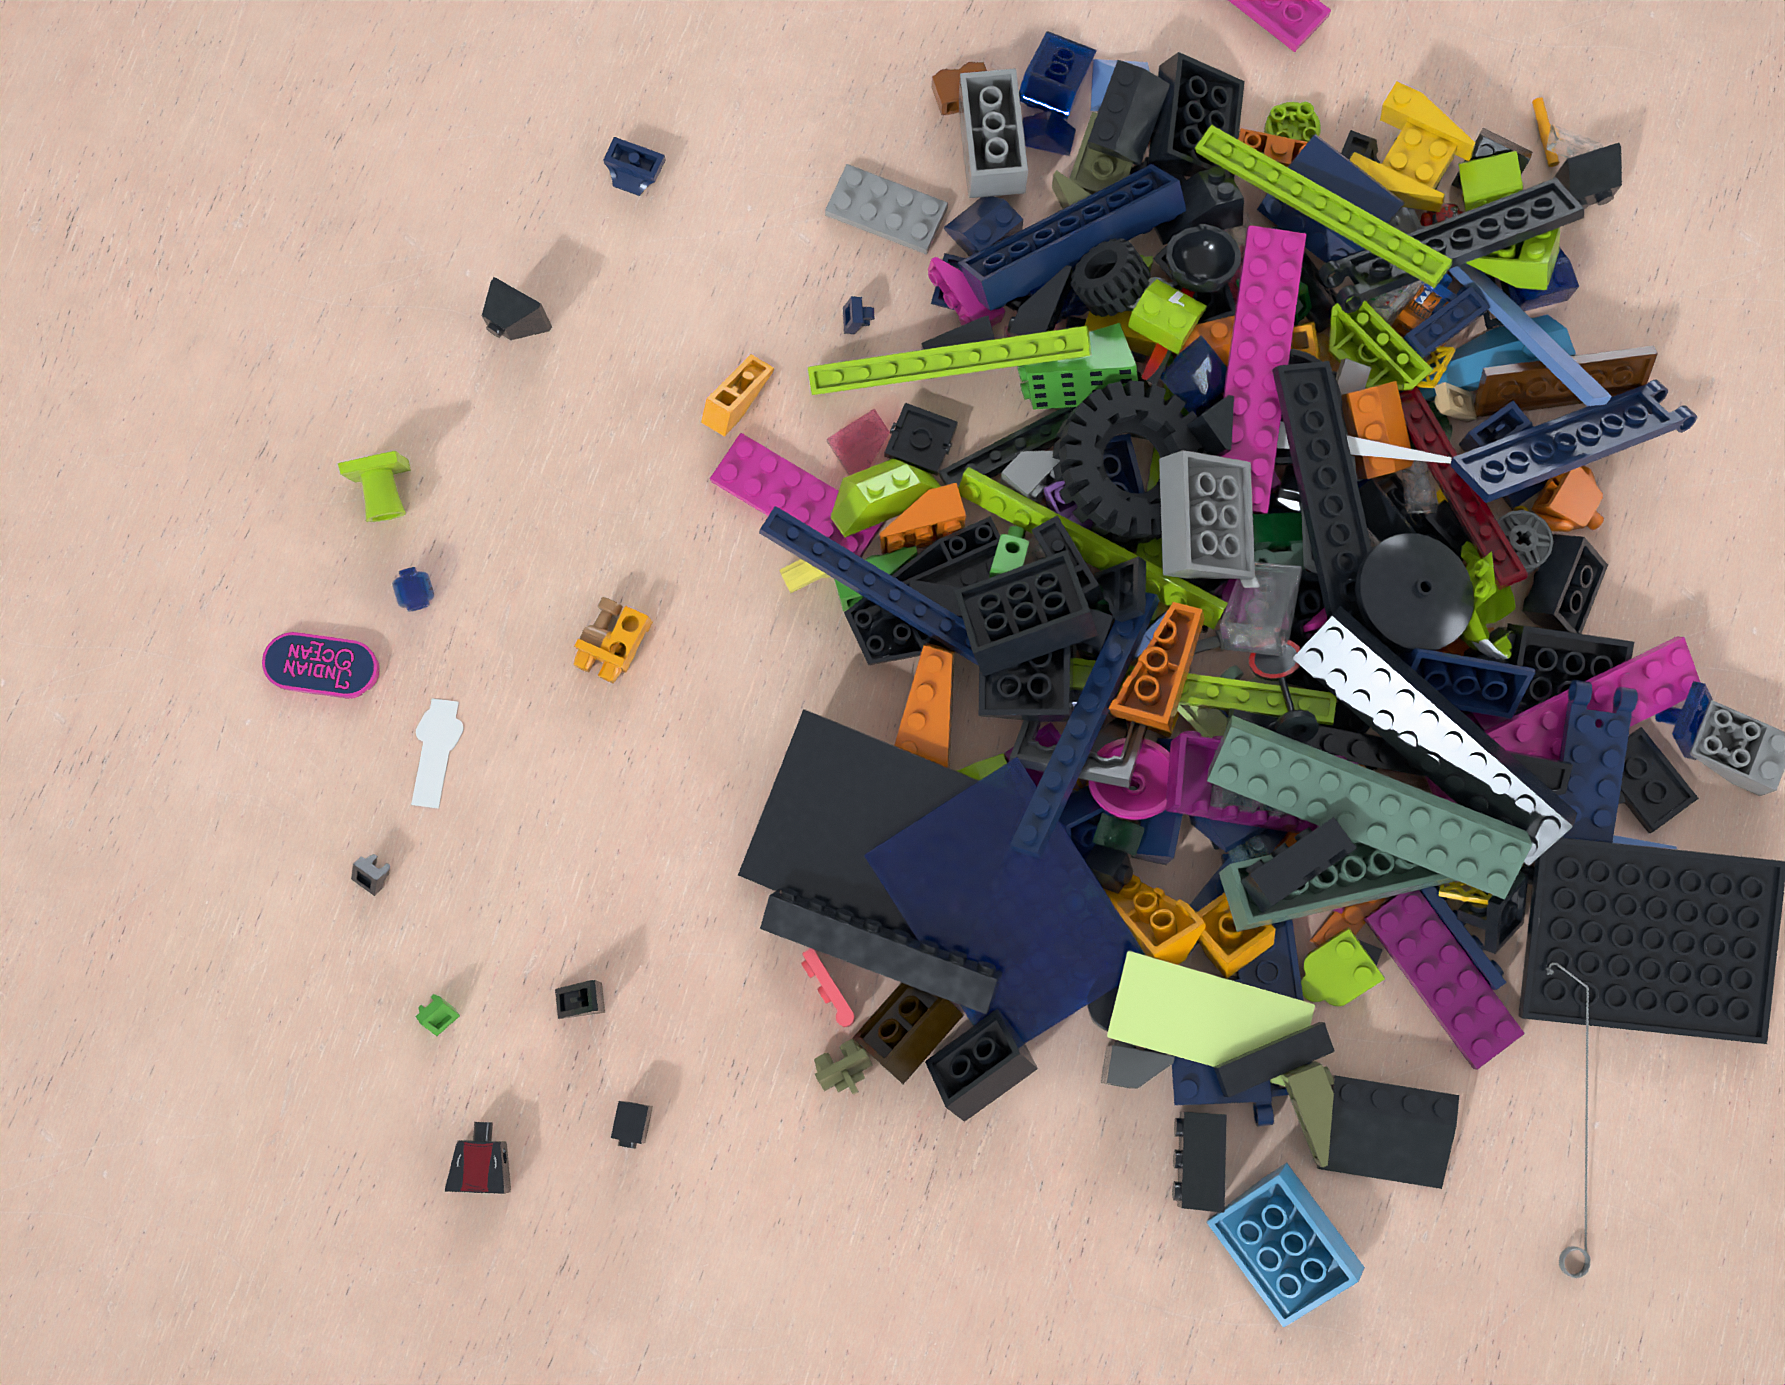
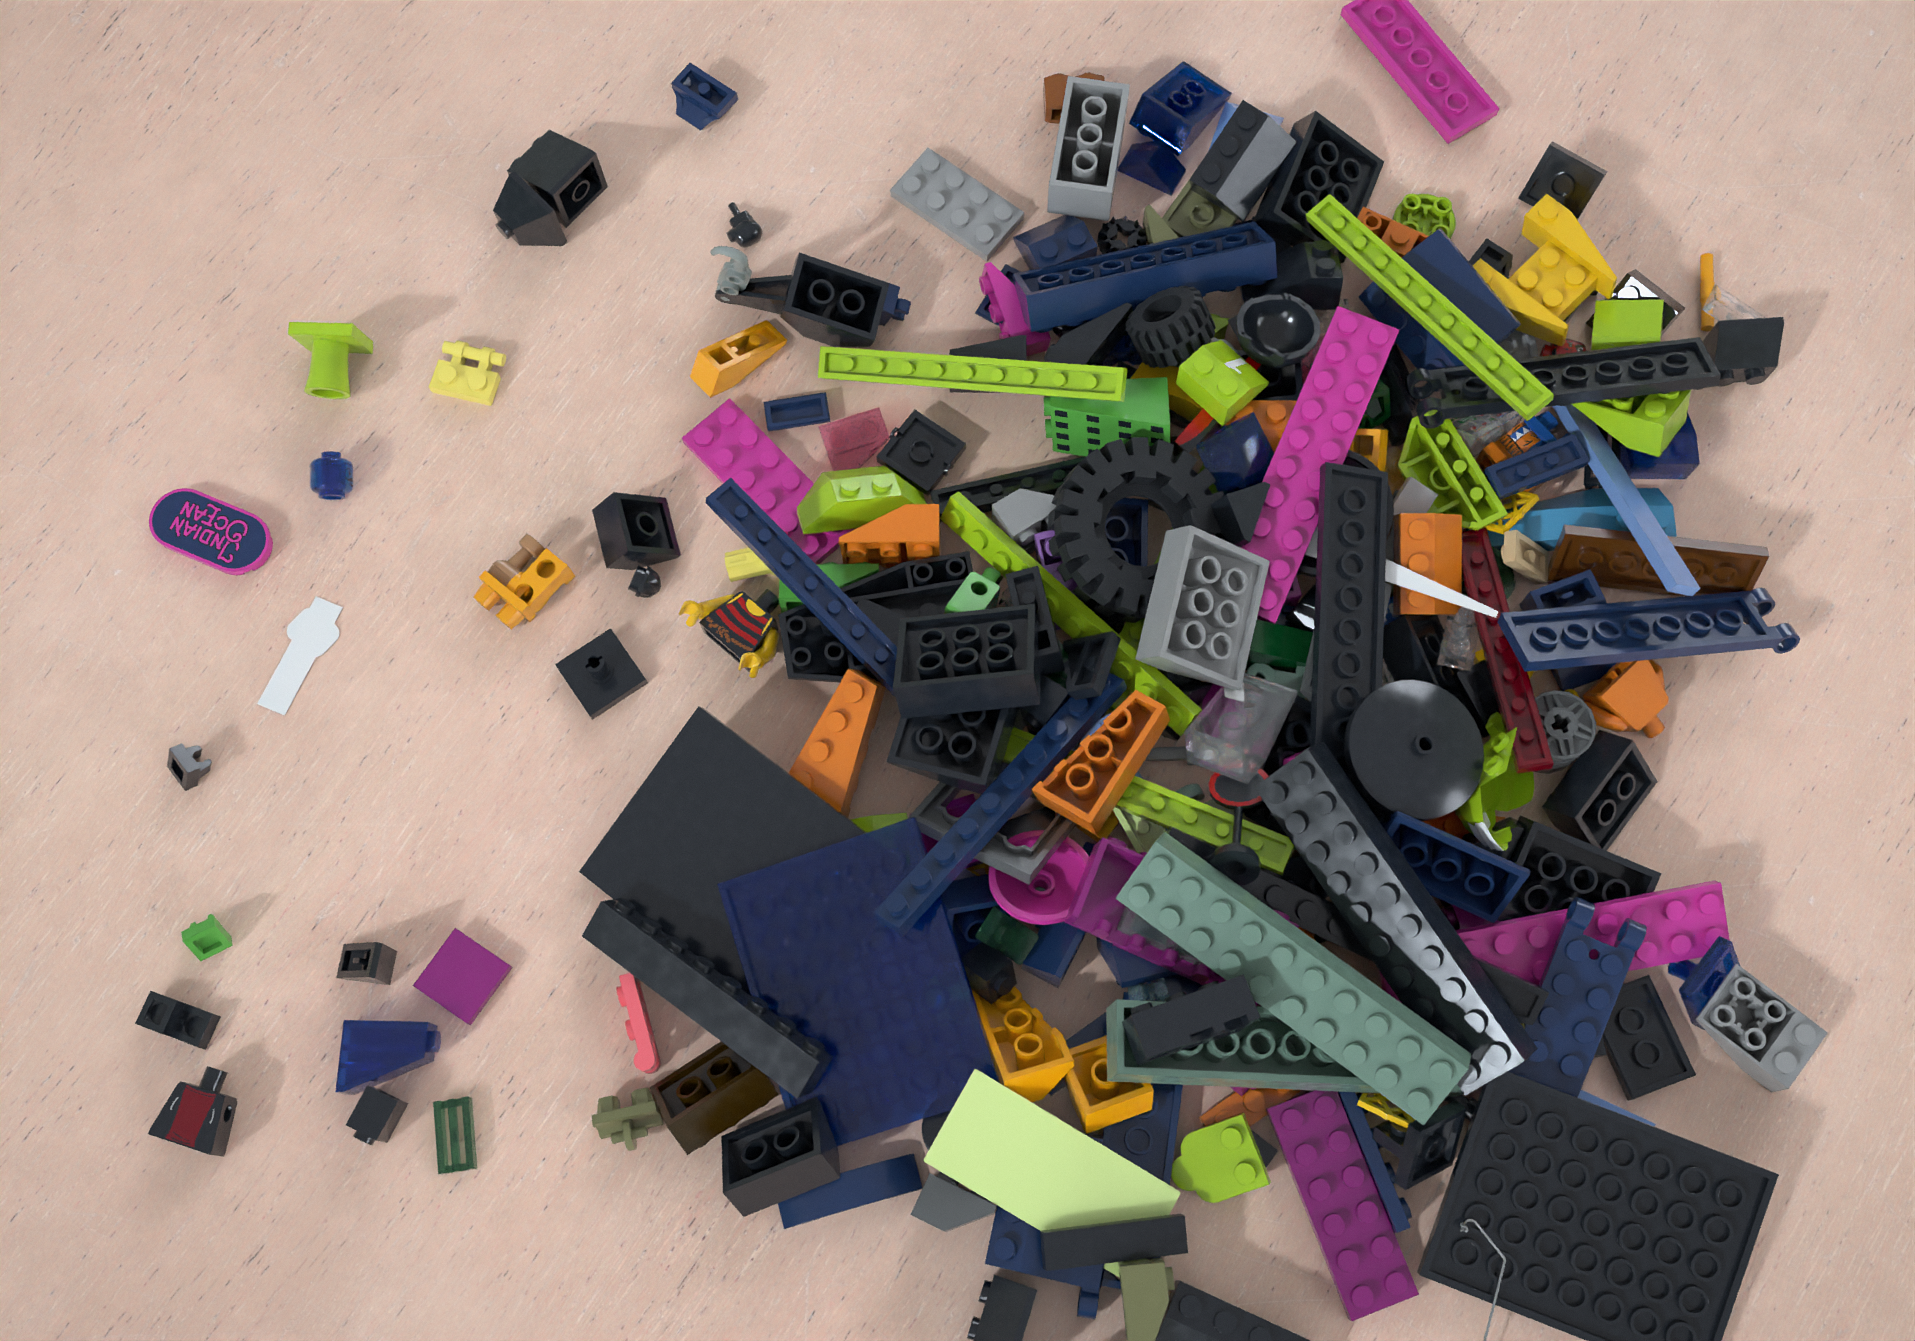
camera: 15 degrees right, 5 degrees down
(434, 1090) = (178, 1020): none -> black slope
(502, 475) = (464, 381): none -> light yellow plate
(530, 265) = (561, 174): none -> black slope
(620, 1068) = (382, 1051): none -> clear blue slope
(666, 988) = (462, 976): none -> magenta tile
(690, 1126) = (441, 1138): none -> clear green tile
(695, 570) = (635, 531): none -> black slope
(703, 701) = (601, 673): none -> black tile
(708, 277) = (744, 228): none -> black piece
(716, 612) = (645, 582): none -> black plate
(798, 327) = (816, 299): none -> black slope
(802, 429) = (796, 411): none -> dark blue tile
(812, 631) = (739, 626): none -> torso
(1026, 203) = (1108, 234): none -> black gear
(1051, 1073) = (853, 1190): none -> dark blue slope
(1403, 61) = (1564, 178): none -> black tile

